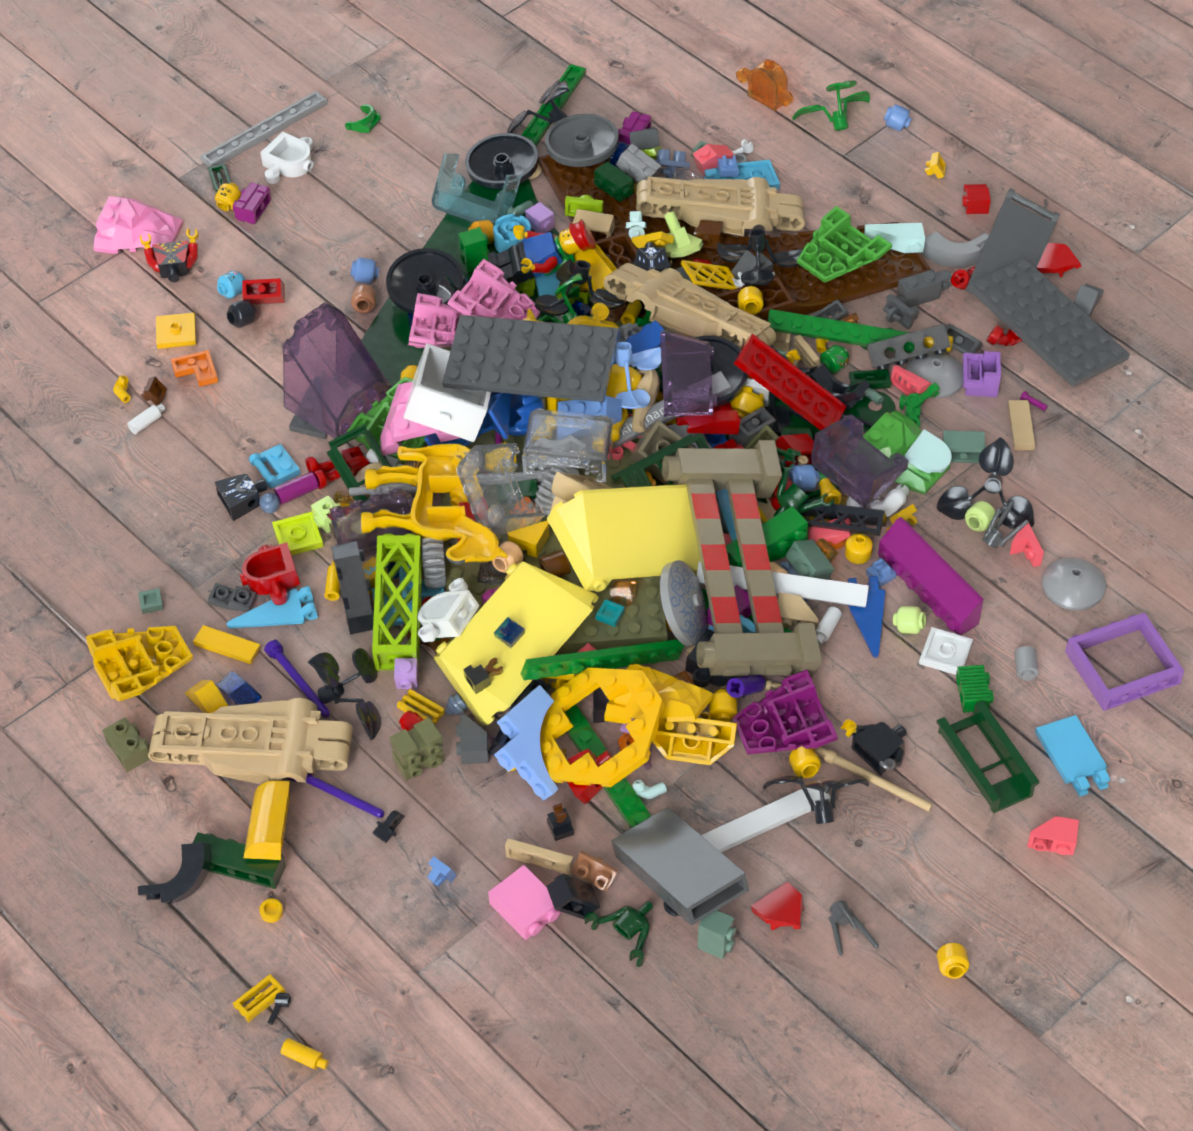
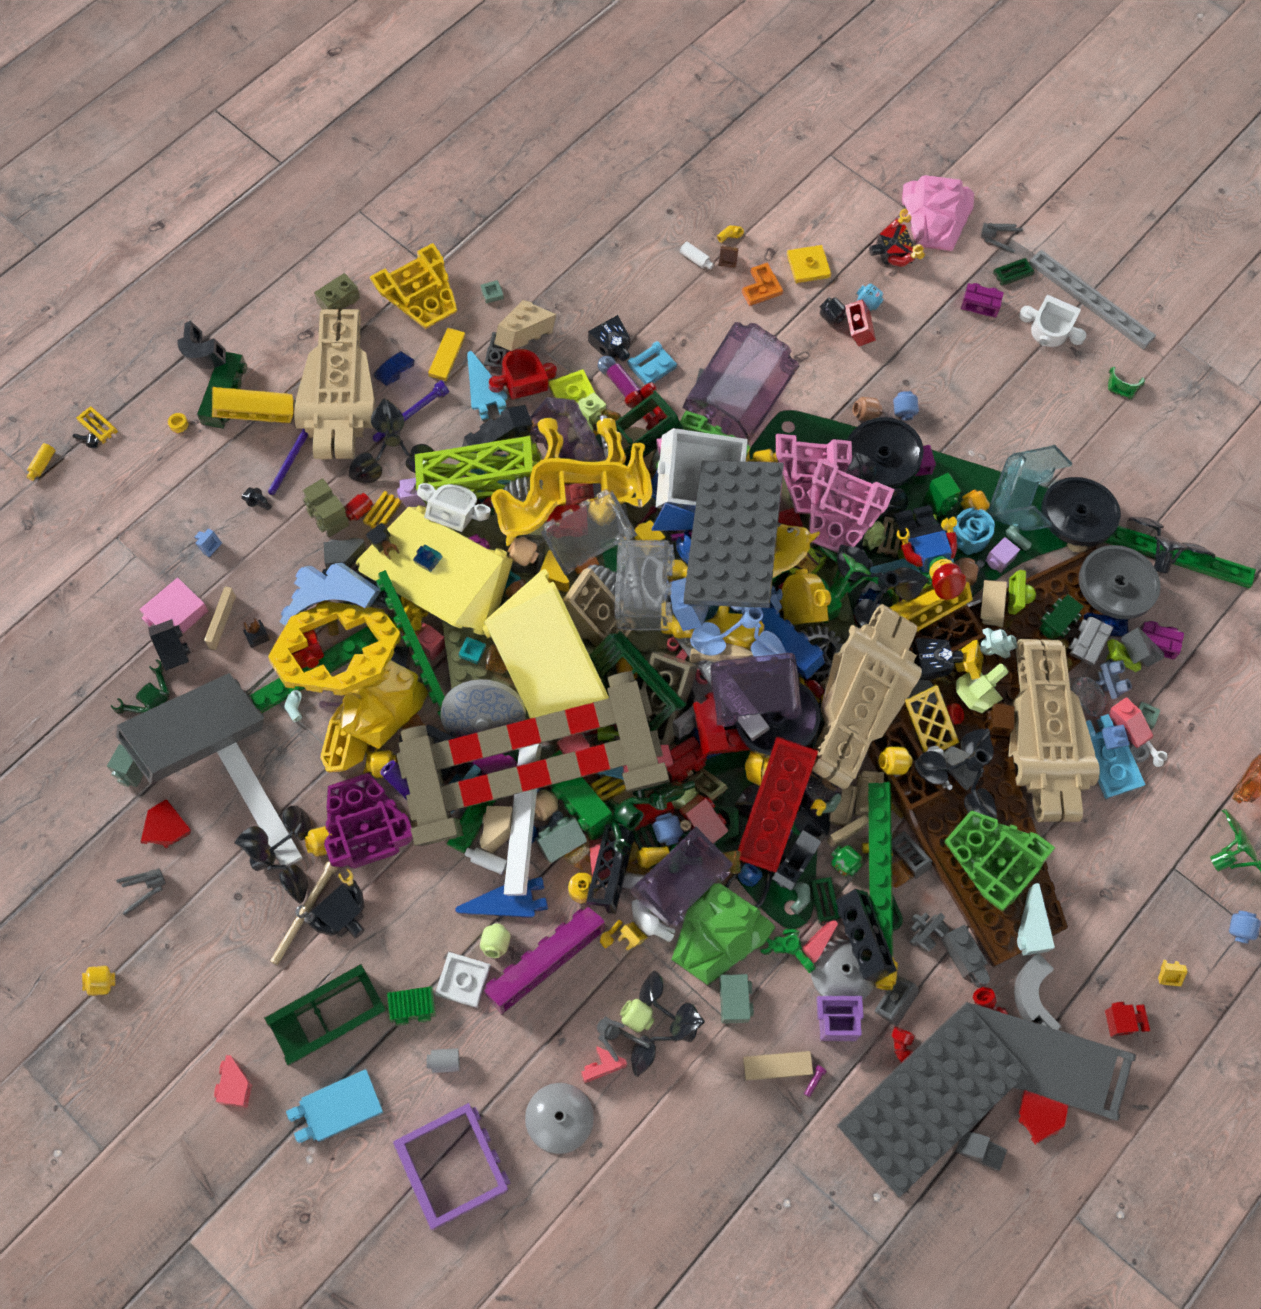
camera: 80 degrees right, 15 degrees up
(170, 187) = (990, 230): none -> dark grey plant
(206, 696) = (388, 345): yellow slope -> none
(211, 563) = (523, 324): none -> tan wedge
(227, 195) = (987, 277): yellow head -> none
(594, 871) = (203, 663): nougat hips -> none
(751, 425) = (730, 775): dark grey brick -> none
(882, 571) = (559, 913): medium blue tile -> none
(929, 453) = (707, 956): light aqua tile -> none

